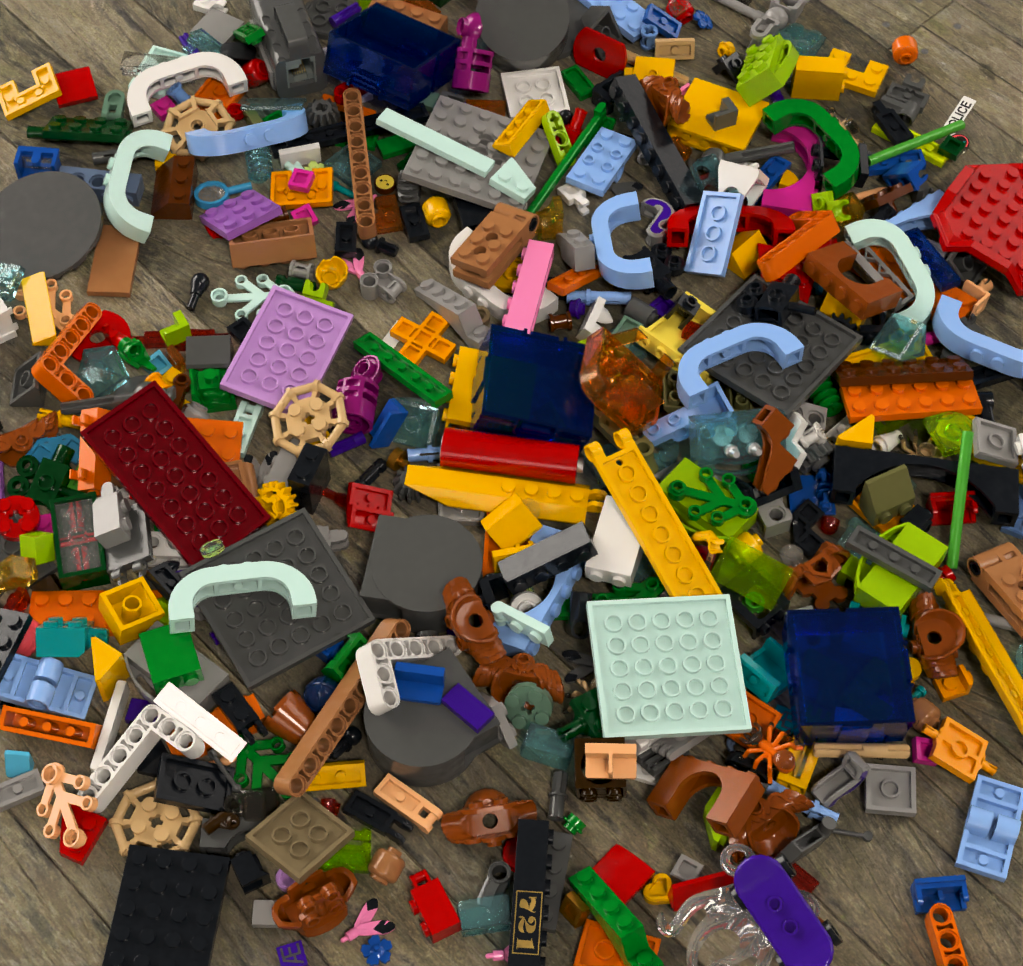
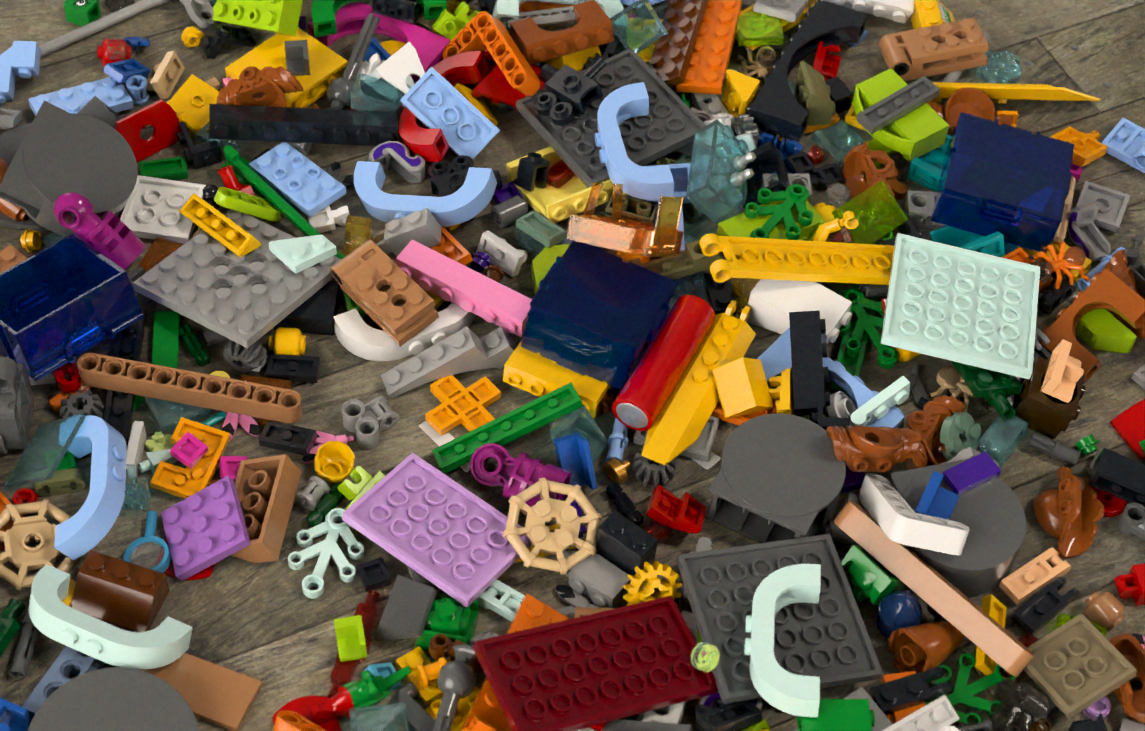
camera: 75 degrees left, 5 degrees down
(176, 358) = (389, 651): clear orange tile -> none
(199, 285) = (283, 603): black piece -> none
(381, 246) = (312, 407): black axle -> none
(435, 142) = (216, 299): light aqua tile -> none
(578, 613) = (871, 371): black piece -> none
(611, 297) = (481, 225): light blue pin -> none
(775, 459) = (741, 132): dark orange arch -> none
(959, 499) = (826, 42): bright green piece -> none

